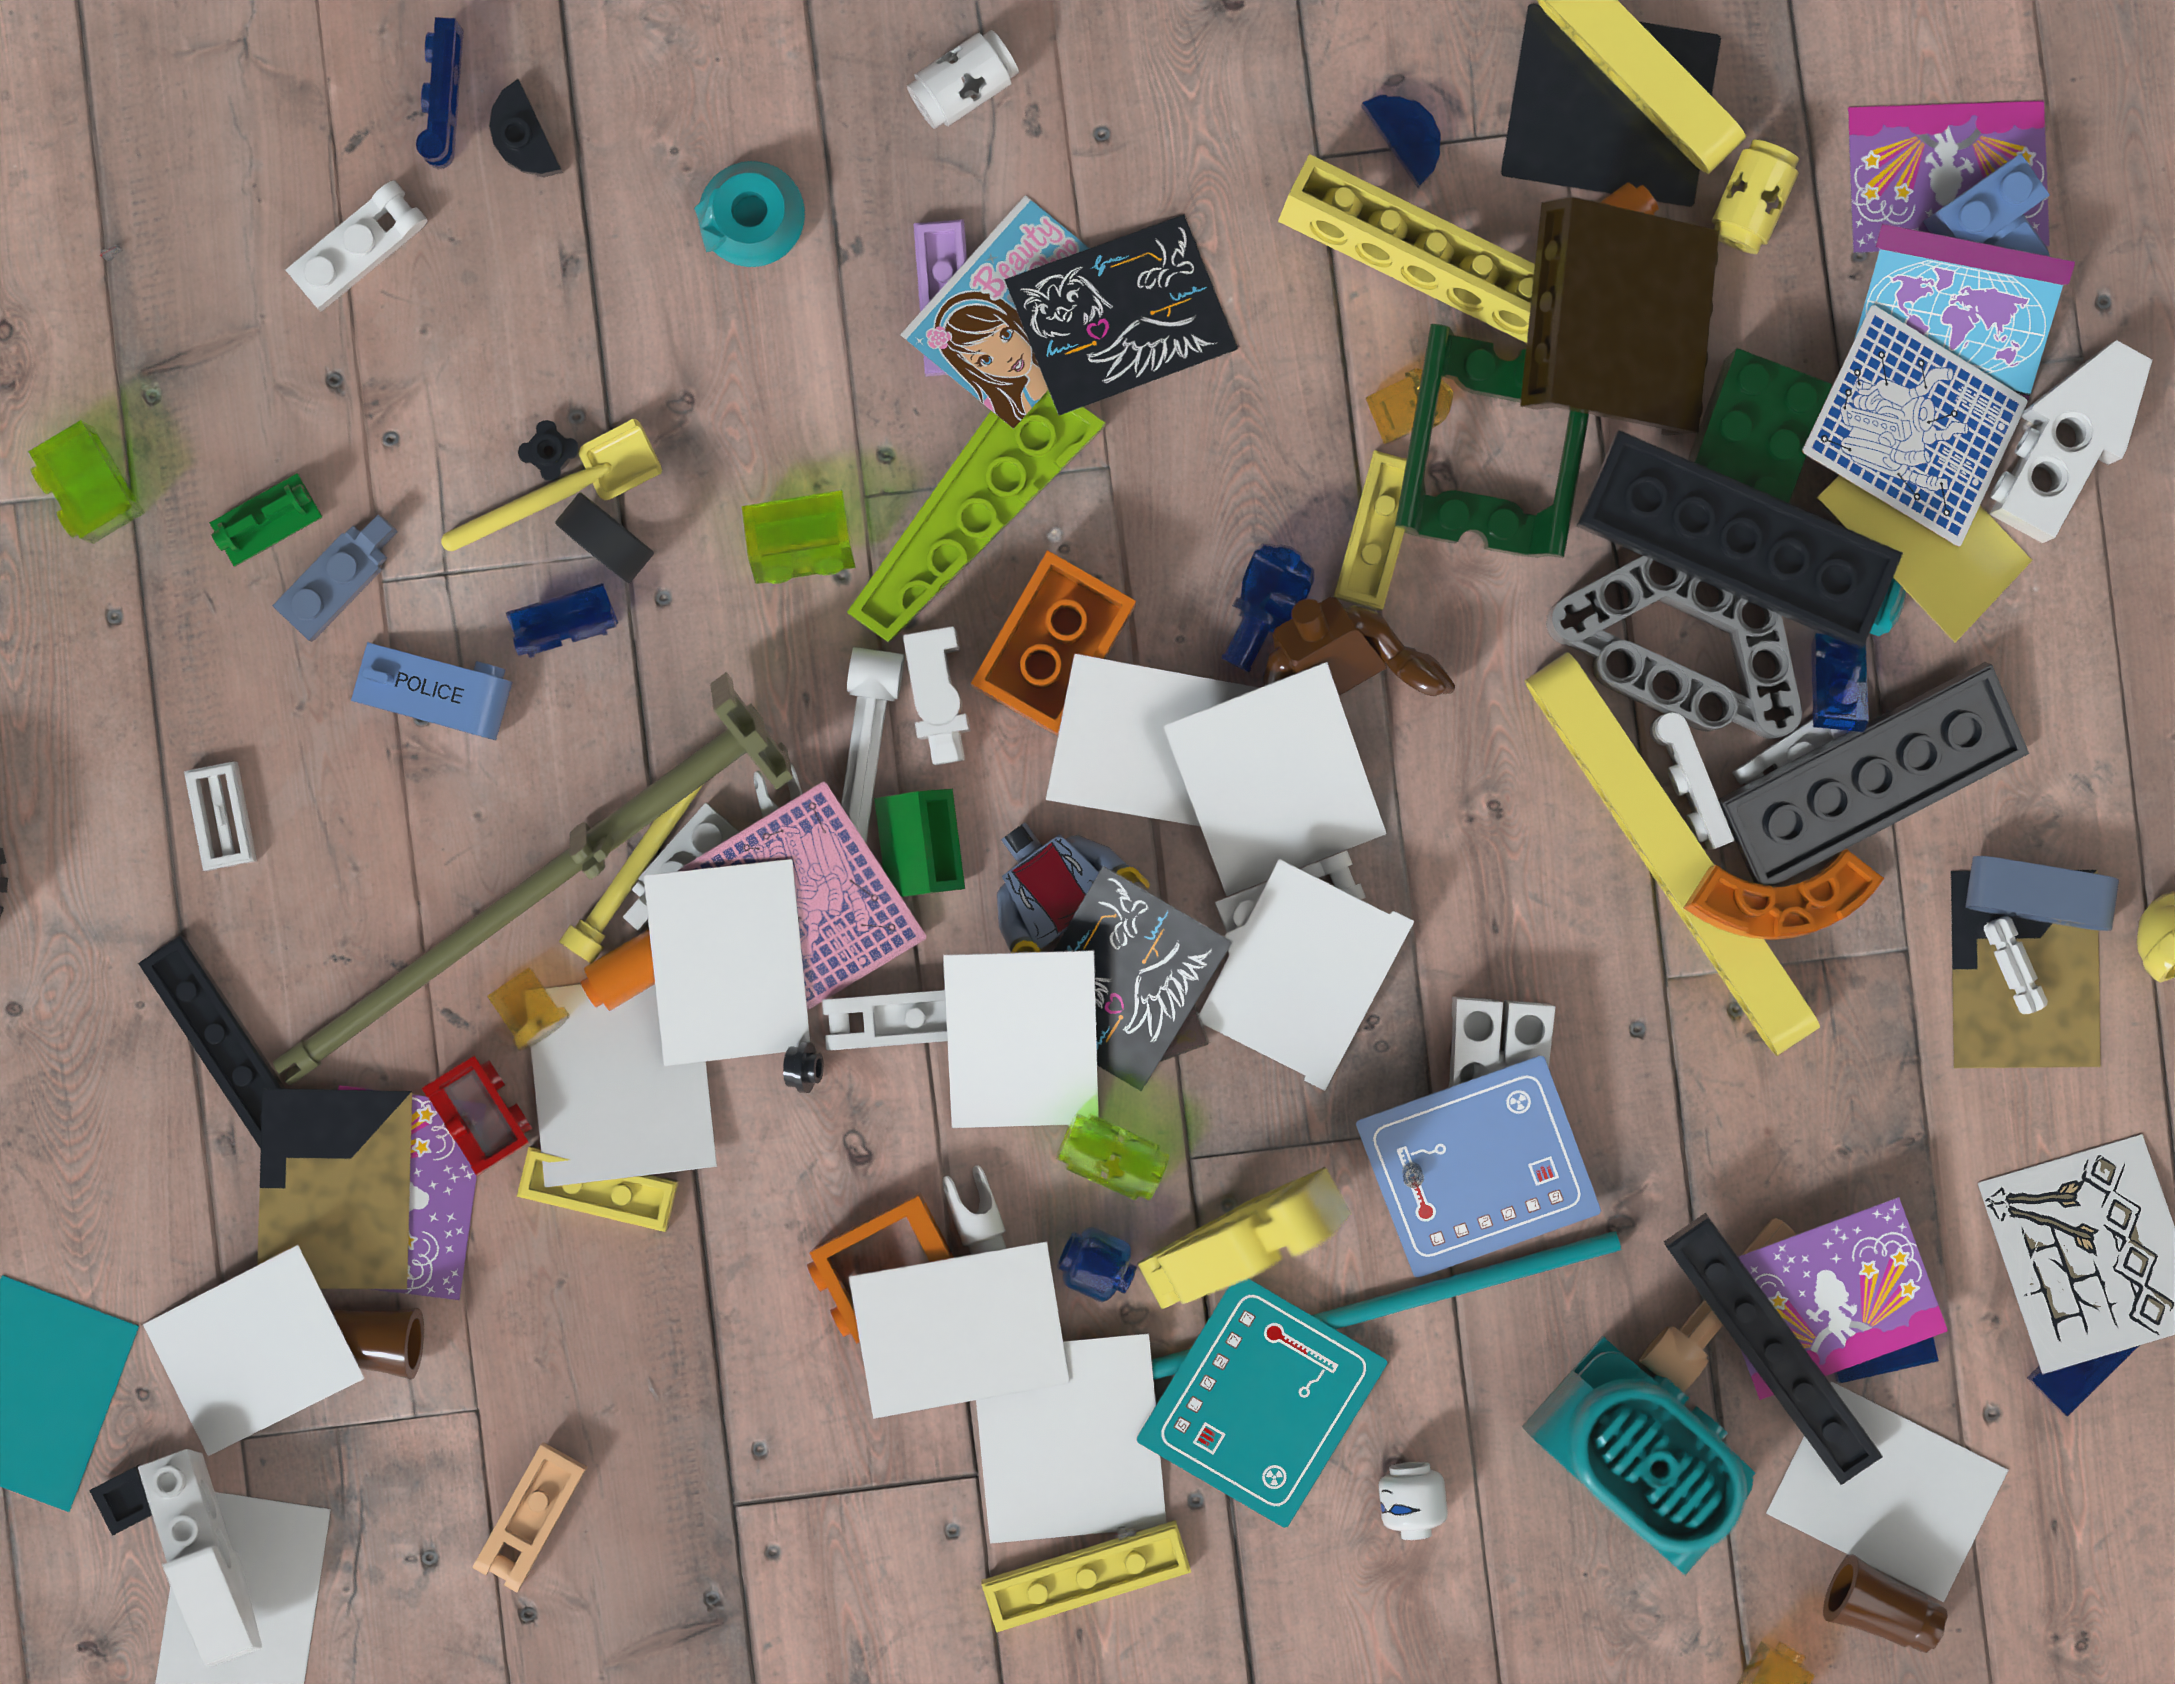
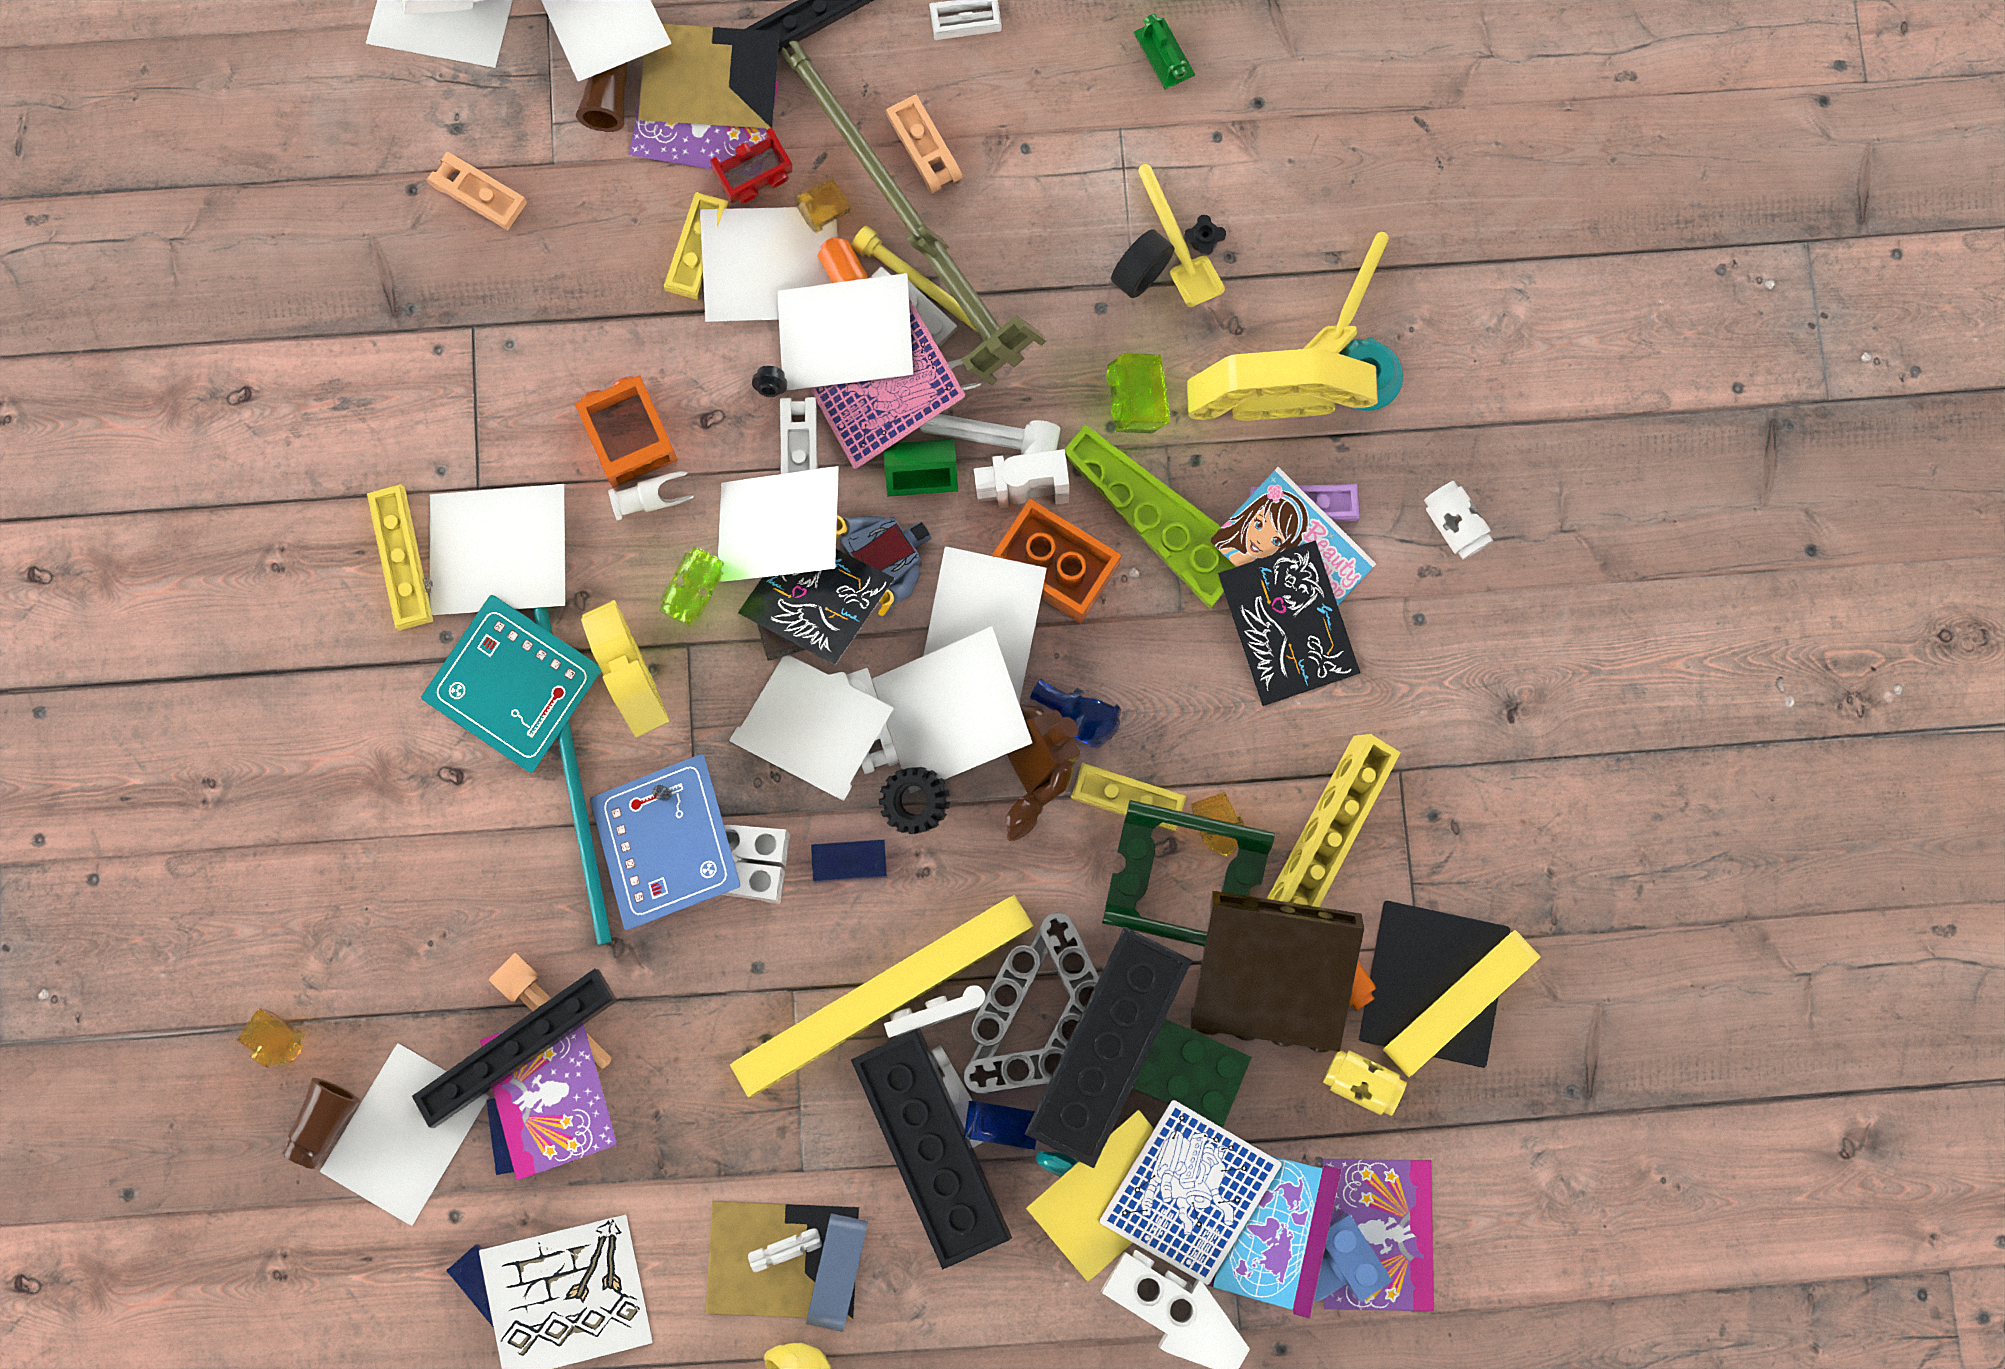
camera: 90 degrees right, 10 degrees down
(335, 578) = (1123, 96): sand blue hinge -> none
(356, 246) = (1348, 118): white plate -> none
(425, 867) = (923, 143): none -> light nougat plate
(433, 690) = (1041, 154): medium blue door -> none
(442, 93) = (1452, 175): clear blue plate -> none
(520, 135) = (1424, 227): black plate -> none
(564, 617) = (1088, 235): clear blue hinge -> none
(700, 259) = (1337, 337): none -> light yellow piece
(788, 331) = (1281, 385): none -> light yellow piece
(959, 1329) = (578, 473): white sticker -> none
(1096, 1264) = (616, 572): clear blue head -> none
(1408, 133) = (1416, 832): clear blue plate -> none
(1413, 1500) = (430, 783): white head -> none
(1429, 836) = (894, 808): none -> black tyre
(1486, 911) = (849, 861): none -> clear blue plate
(1644, 1454) = (443, 947): teal brick -> none
(1784, 911) = (835, 1074): orange tile -> none

